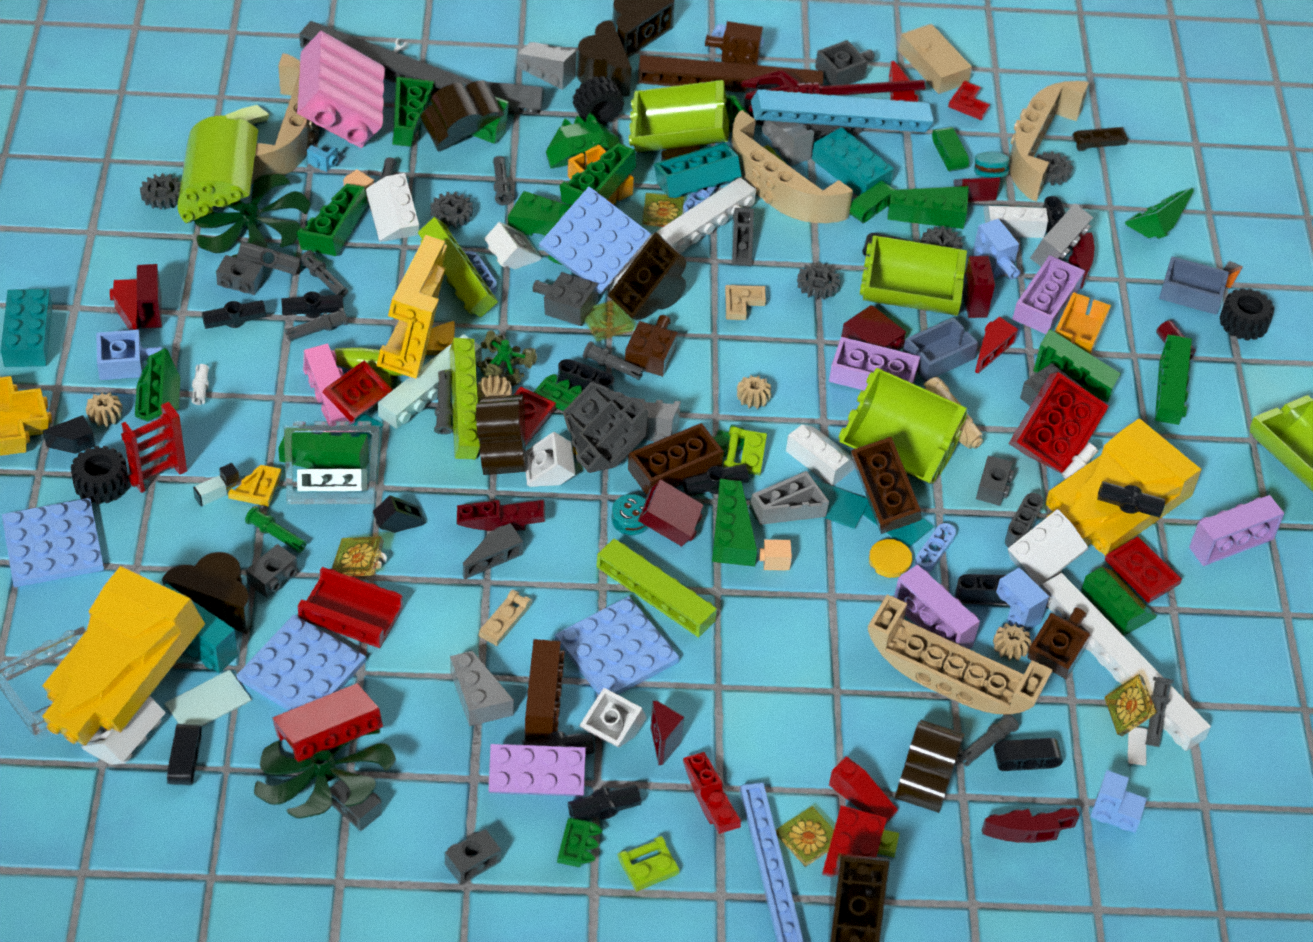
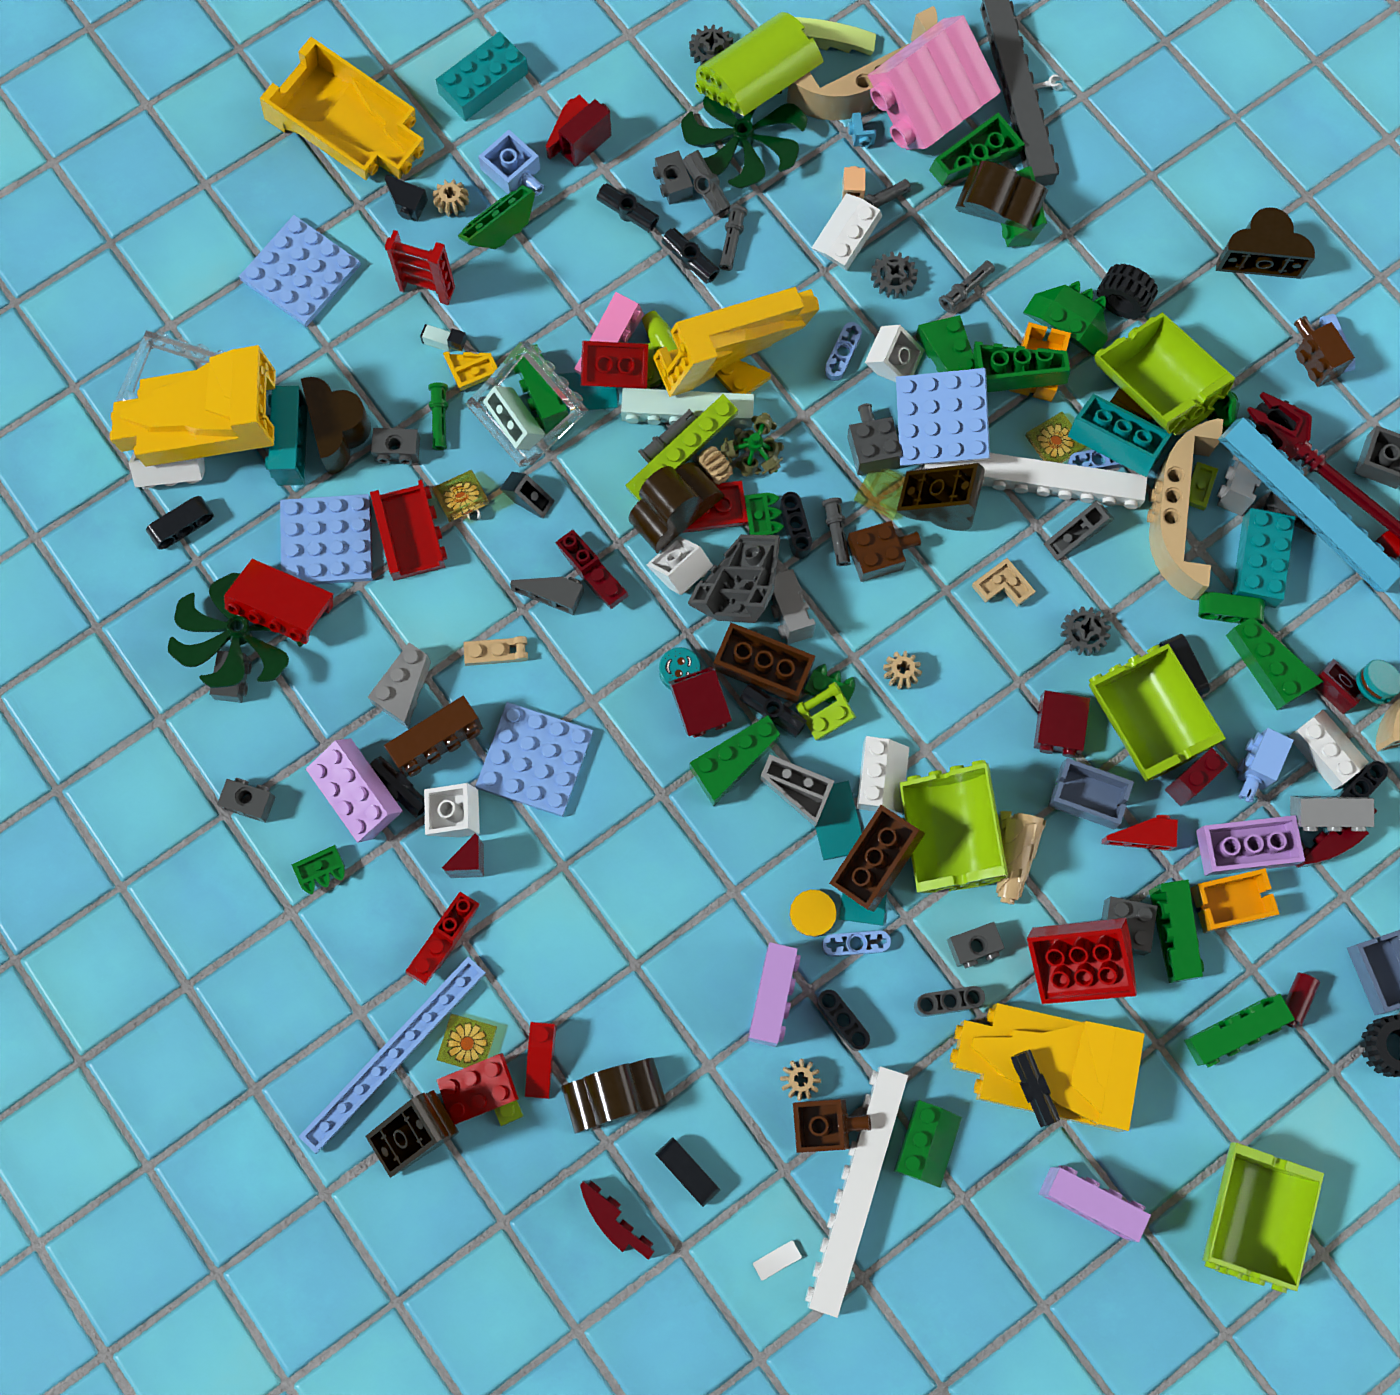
camera: 55 degrees right, 25 degrees up
(95, 462) = (370, 238): black tyre -> none
(200, 384) = (536, 243): white pin -> none
(208, 700) = (245, 499): light aqua window -> none
(326, 322) = (681, 280): dark grey pin -> none
(335, 221) = (794, 199): green wedge -> none
(461, 271) = (828, 330): lime brick -> none
(519, 96) = (1077, 218): dark grey slope -> none
(548, 63) = (1141, 214): light grey wedge -> none
(604, 56) = (1187, 253): dark brown brick -> none
(604, 803) = (371, 862): black piece -> none
(651, 870) = (340, 943): lime plate -> none
(656, 587) = (618, 746): lime brick -> none
(680, 71) = (1276, 370): reddish brown brick -> none
(776, 555) = (732, 816): light nougat brick -> none
(857, 359) = (1015, 753): lavender brick -> none
(942, 237) = (1237, 714): dark grey gear -> none
(950, 149) = (1369, 629): green beam -> none
(951, 667) = (722, 1051): tan slope -> none
(995, 734) = (688, 1129): dark grey pin -> none
(1024, 598) = (846, 1059): light blue brick -> none
(1047, 548) = (925, 1046): white slope -> none
(1080, 460) = (1059, 1007): white pin -> none
(1116, 805) = (689, 1286): light blue brick -> none
(1130, 705) = (806, 1230): clear yellow tile -> none
(1143, 569) = (982, 1143): red plate -> none
(1160, 699) = (824, 1256): dark grey pin -> none

